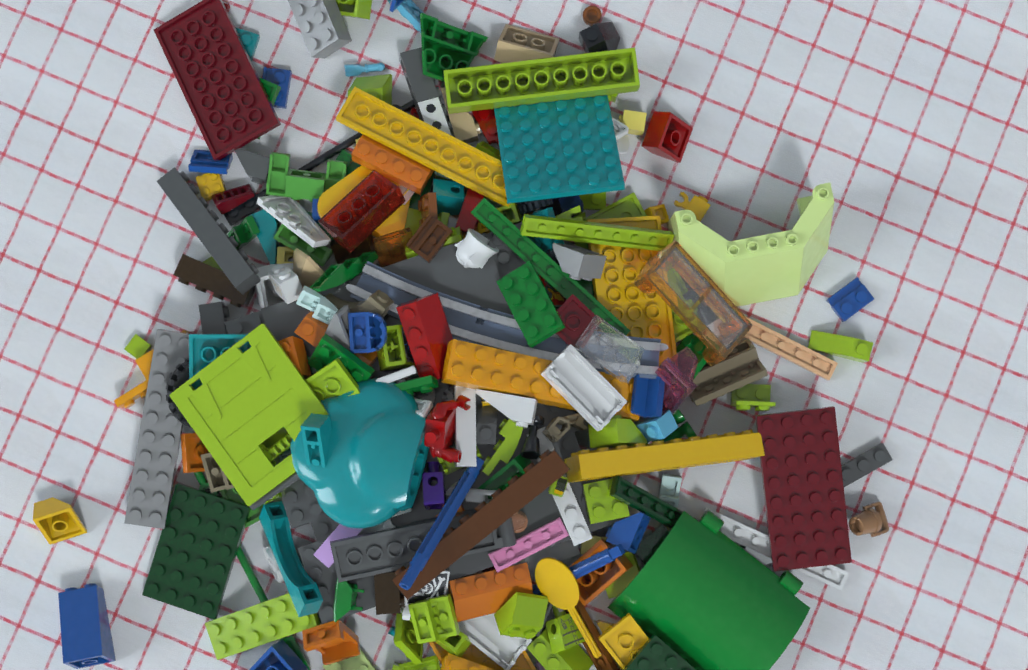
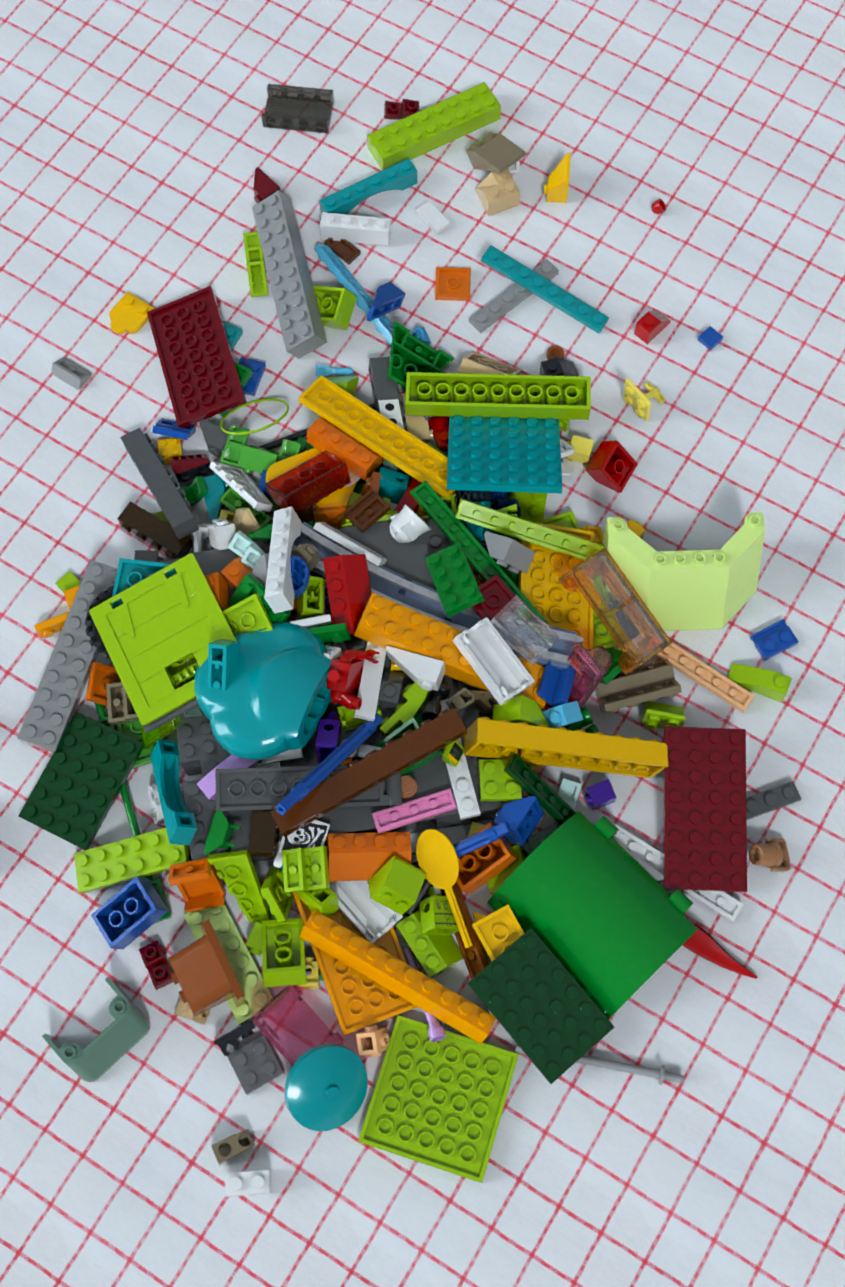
camera: 10 degrees right, 15 degrees down
(87, 110) = (70, 373): none -> light grey slope
(135, 33) = (129, 314): none -> yellow plate
(305, 156) = (257, 430): none -> lime piece
(358, 347) = (279, 586): none -> white arch
(373, 632) = (242, 881): none -> lime wing
(418, 278) = (350, 543): none -> white tile
(448, 15) = (421, 334): none -> dark azure plate
(689, 66) = (640, 401): none -> light yellow plate
(700, 486) = (599, 795): none -> dark purple brick
(823, 619) = (708, 948): none -> red piece

